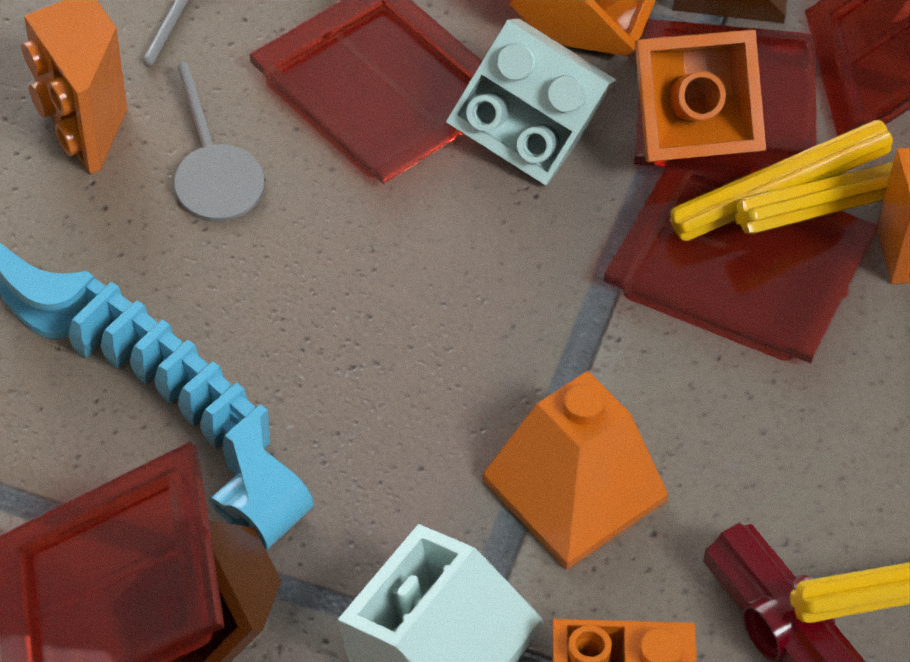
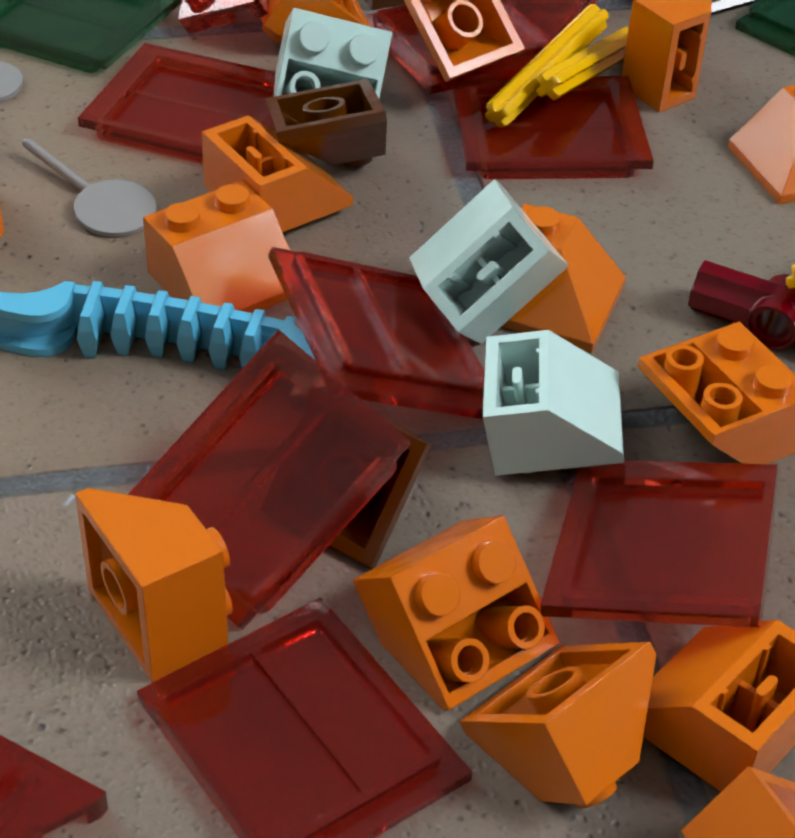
camera: 30 degrees left, 10 degrees down
(265, 296) = (217, 248): none -> orange slope
(337, 459) = (381, 334): none -> clear red piece
(381, 215) = (277, 173): none -> orange slope
(470, 172) = (332, 122): none -> reddish brown slope
(487, 431) = (486, 263): none -> light aqua slope

